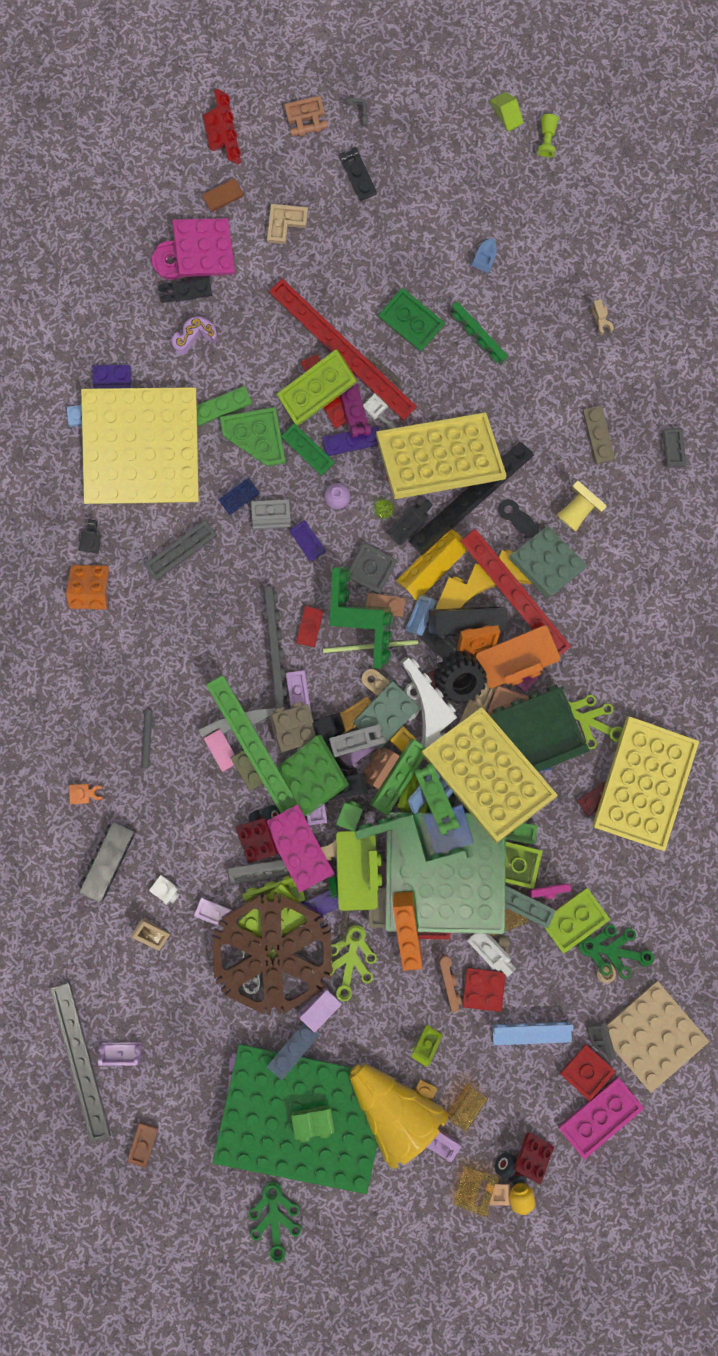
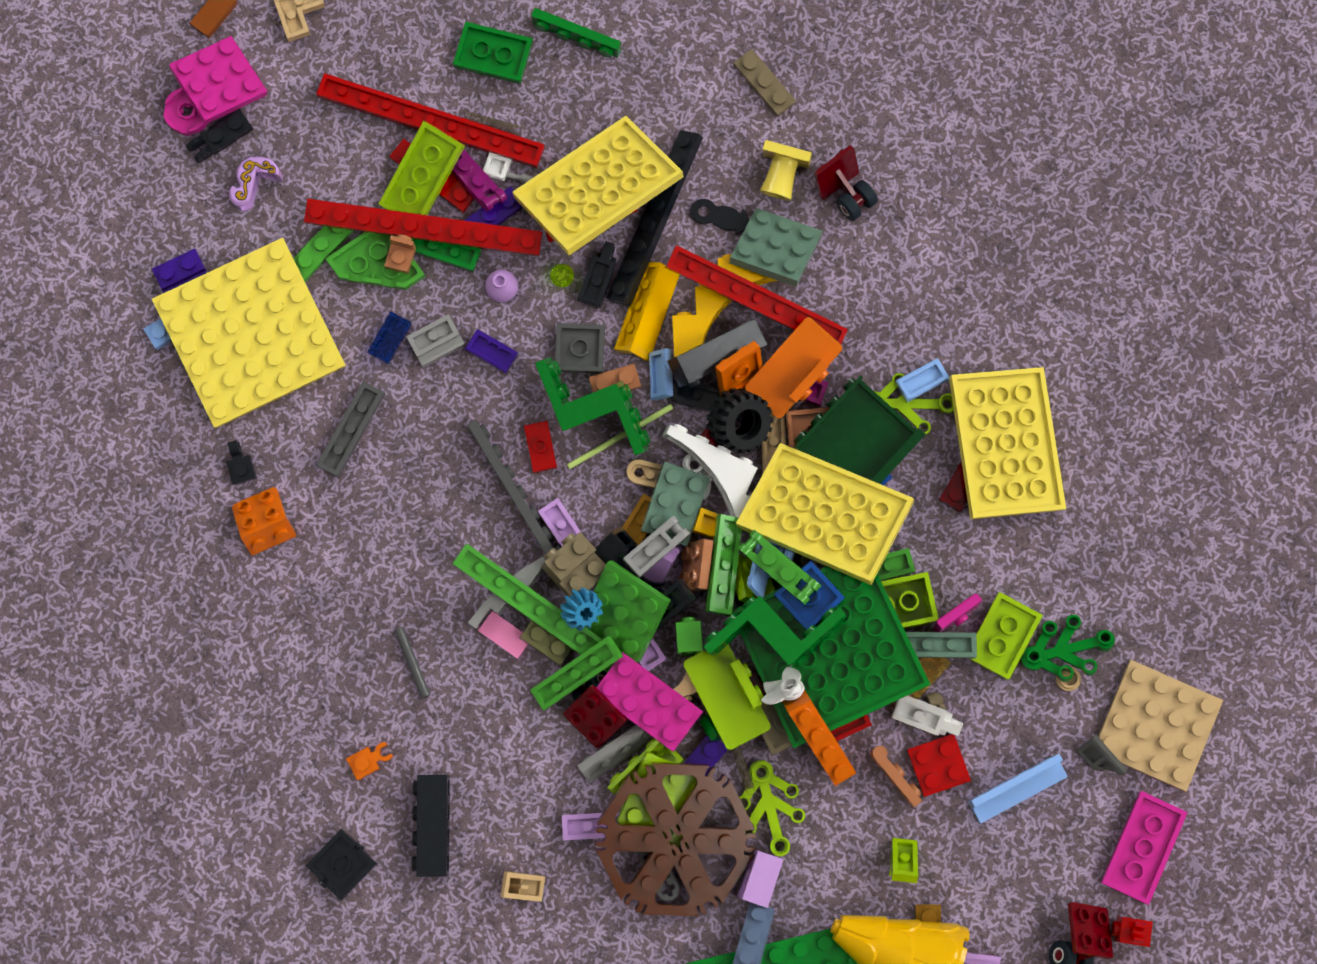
camera: 20 degrees left, 5 degrees down
(31, 858) = (341, 864): none -> black plate
(165, 890) = (515, 827): white bracket -> none
(258, 803) = (576, 673): none -> bright green plate
(274, 439) = (400, 254): none -> nougat bracket
(282, 760) = (581, 609): none -> dark azure gear
(300, 427) = (423, 227): none -> red plate
(398, 887) = (786, 689): none -> white plate
(466, 1107) = (984, 909): clear yellow hinge -> none
(563, 1172) = (1132, 931): none -> red brick
(587, 1072) = (1102, 802): red plate -> none
(606, 709) = (922, 380): none -> light blue tile
(618, 529) = (836, 175): none -> dark red plate
(674, 447) = (855, 58): dark grey plate -> none

